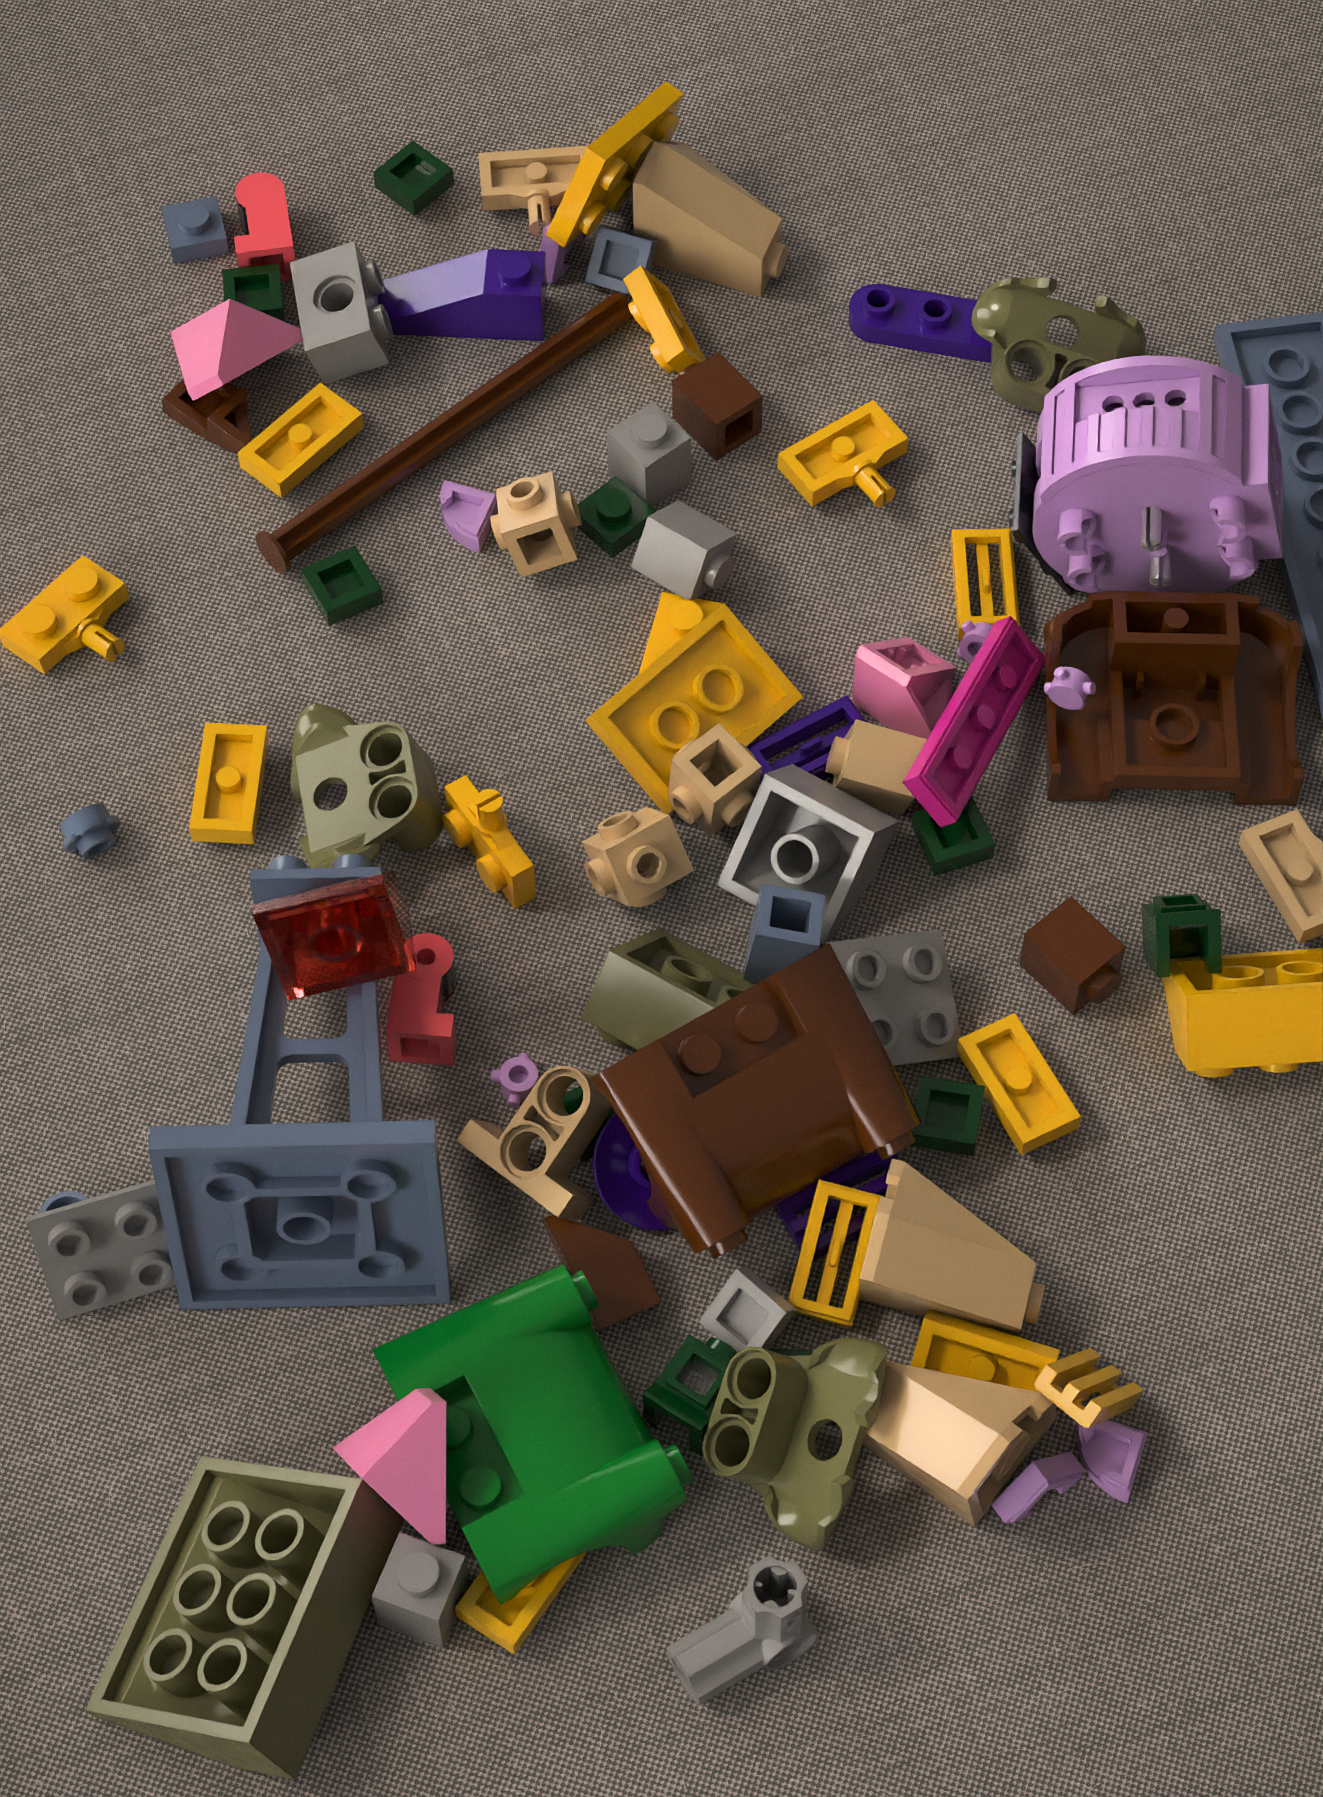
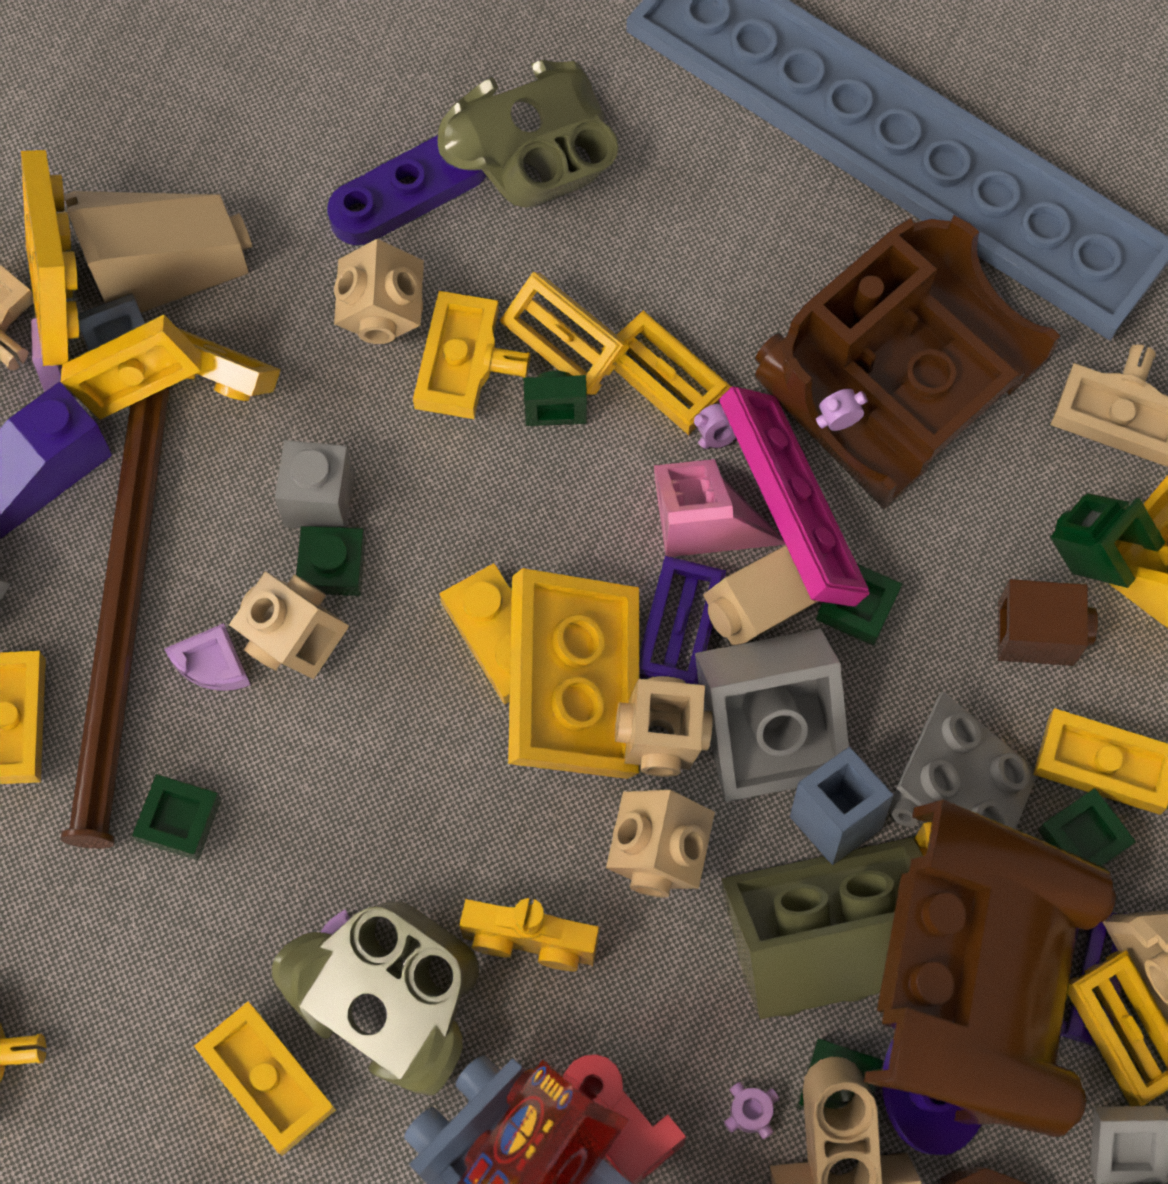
camera: 45 degrees left, 10 degrees up
(602, 279) = (131, 367): none -> yellow plate
(685, 551) = (430, 545): light grey brick -> none
(716, 406) = (319, 397): reddish brown brick -> none
(827, 367) = (379, 292): none -> tan brick
(878, 533) = (555, 399): none -> dark green plate
(959, 523) = (602, 362): none -> yellow tile
(1151, 479) = (750, 187): lavender piece -> none

